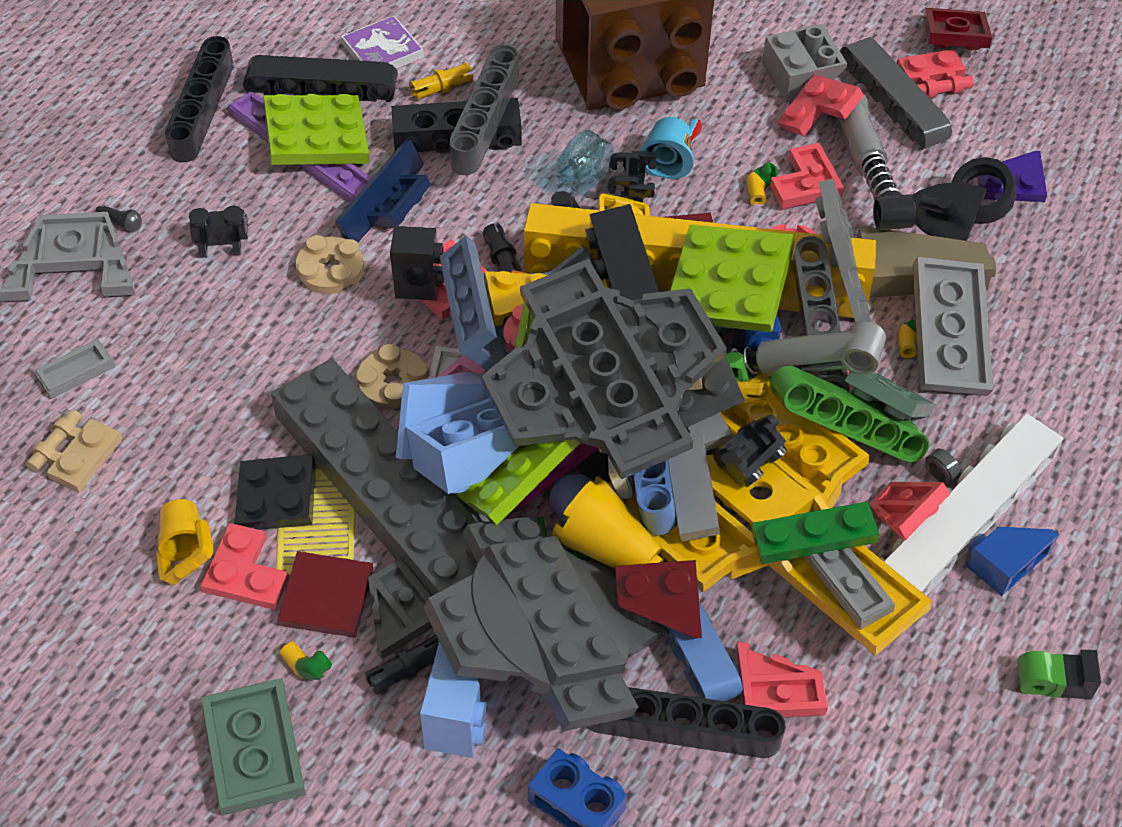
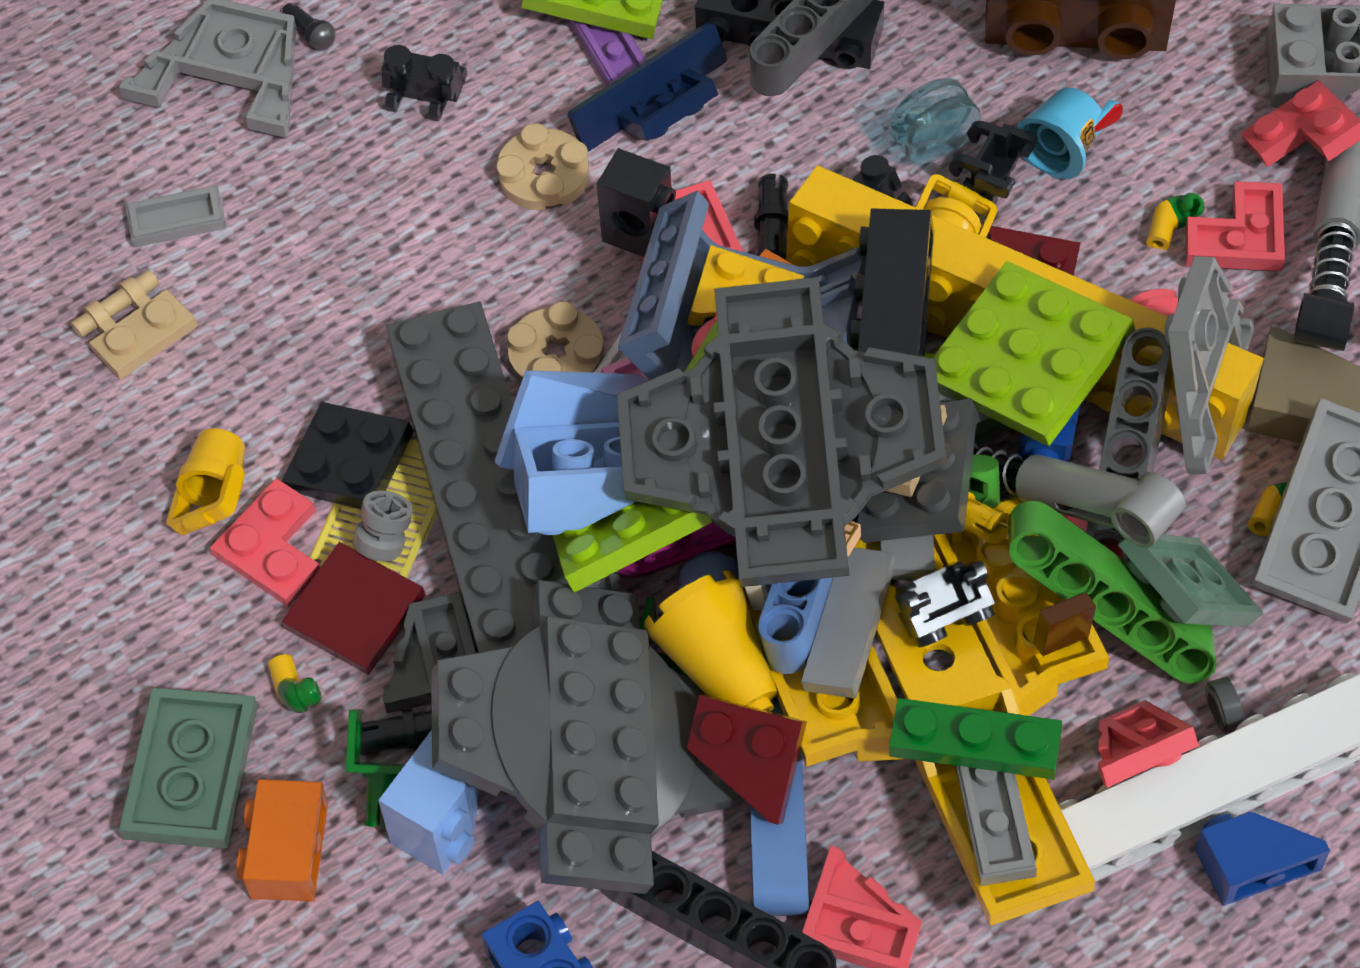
camera: 25 degrees right, 5 degrees up
(326, 529) = (385, 517): none -> light grey wheel
(350, 772) = (283, 840): none -> orange brick
(403, 704) = (378, 775): none -> green bracket
(835, 440) = (1064, 623): none -> reddish brown tile

